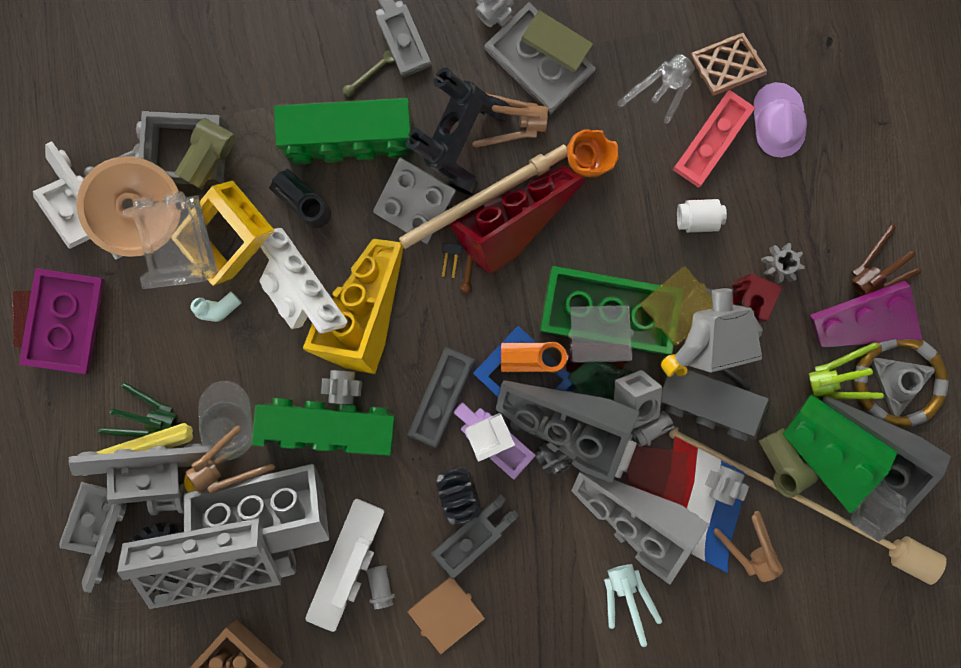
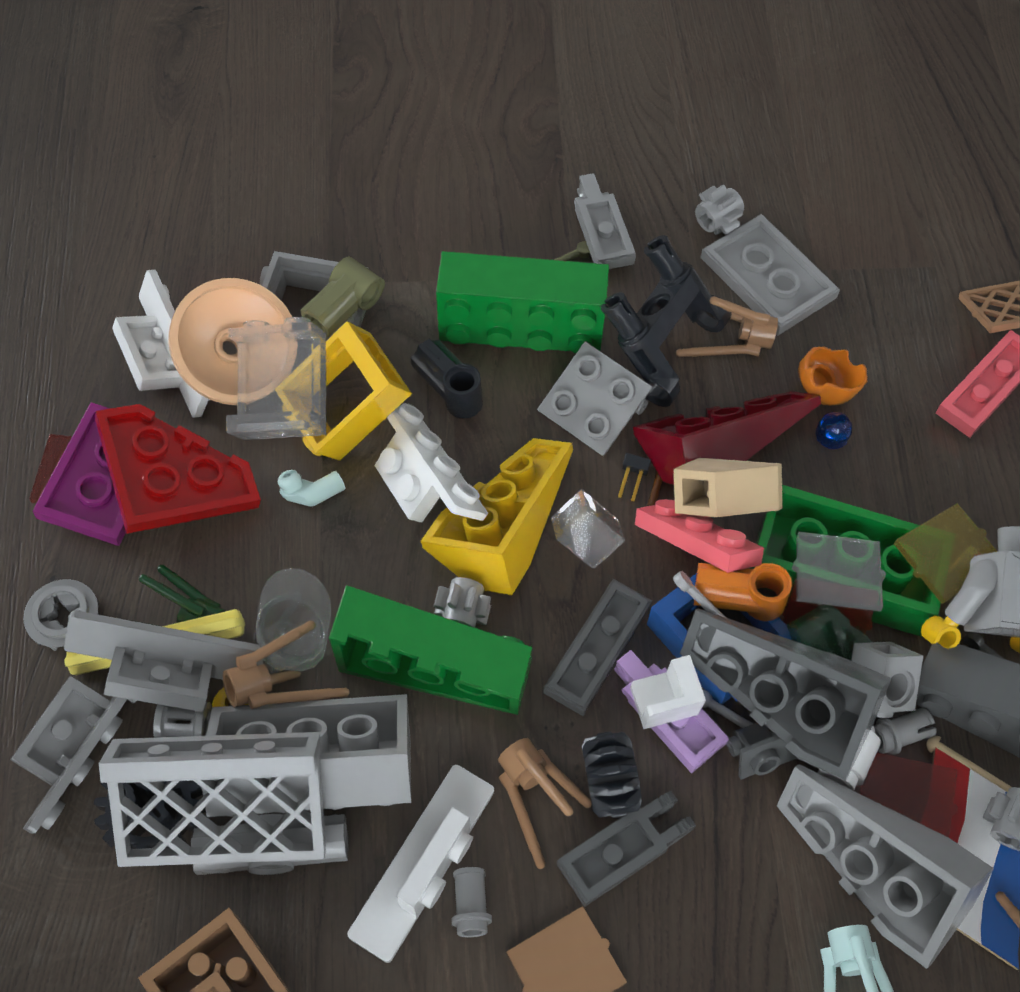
camera: 10 degrees right, 25 degrees down
(49, 429) = (43, 609): none -> light grey gear
(108, 317) = (169, 472): none -> red plate
(401, 495) = (529, 767): none -> medium nougat plant
(422, 311) = (587, 529): none -> clear panel
(491, 367) = (685, 584): none -> light grey hinge
(501, 315) = (700, 537): none -> coral plate
(515, 279) = (727, 487): none -> tan slope
(536, 166) = (757, 384): tan bar -> none
(557, 41) = (794, 253): olive tile -> none
(600, 202) = (836, 435): none -> clear blue hinge
(675, 74) = (938, 308): clear plant -> none
(701, 215) = (975, 466): white brick -> none

